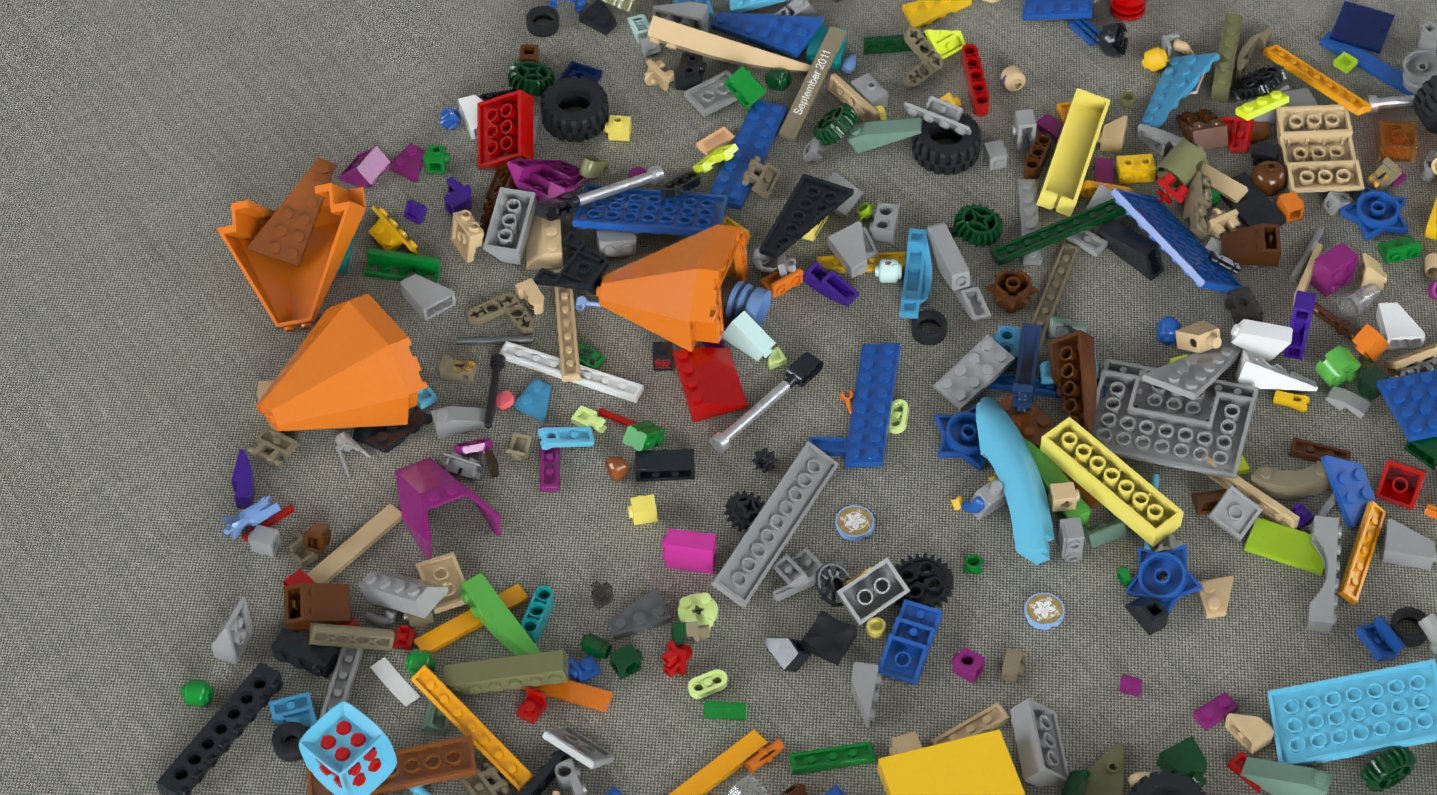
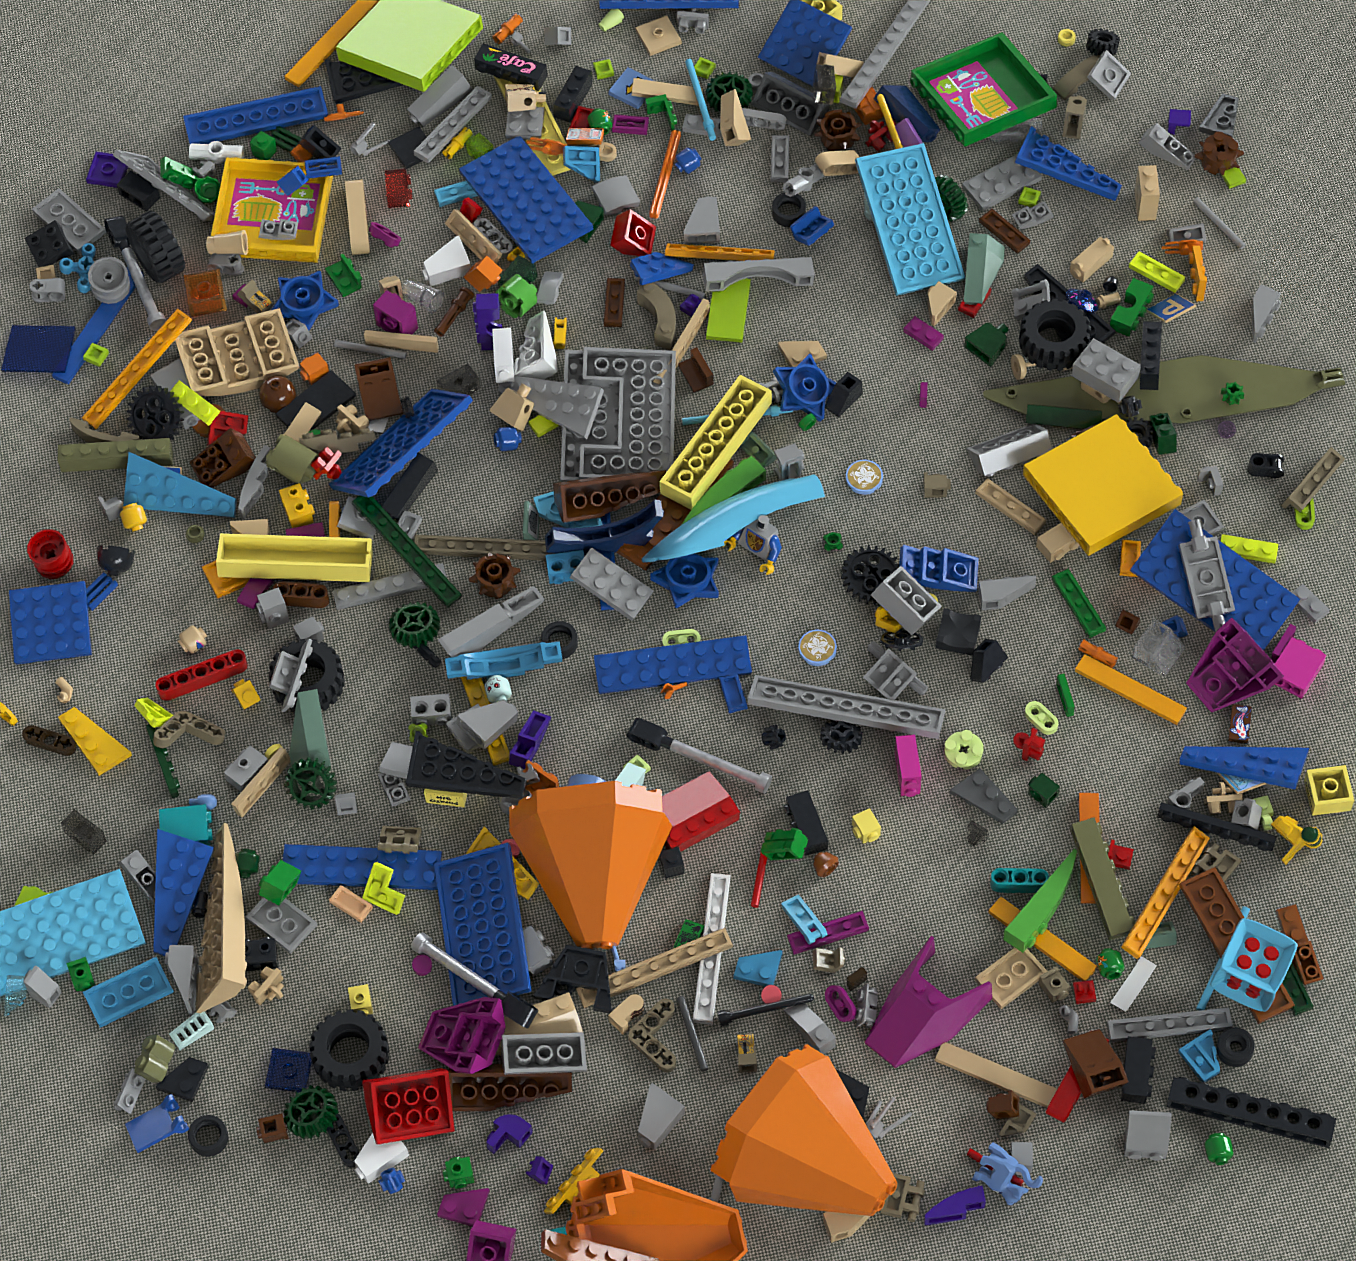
camera: 105 degrees left, 10 degrees up
(351, 636) = (1111, 1024): dark tan fence -> none
(402, 262) = (615, 1144): green fence -> none
(402, 592) = (1042, 997): light grey slope -> none
(466, 234) = (569, 1097): tan plate -> none
(578, 746) = (1152, 797): light grey tile -> none
(583, 669) = (1060, 825): blue bracket -> none
(588, 417) = (770, 910): yellowish green plate -> none
(593, 167) = (429, 1007): olive piece -> none
(595, 646) = (1036, 820): dark green brick -> none
(680, 185) = (437, 918): black beam -> none
(689, 630) = (1001, 742): hips -> none
(812, 84) = (250, 822): dark tan tile -> none
(968, 672) = (948, 512): magenta brick -> none
(1063, 496) = (748, 473): tan brick -> none
(1182, 47) = (112, 495): tan arm -> none
(1235, 513) = (713, 347): light grey plate -> none
(1265, 151) = (248, 399): black brick -> none

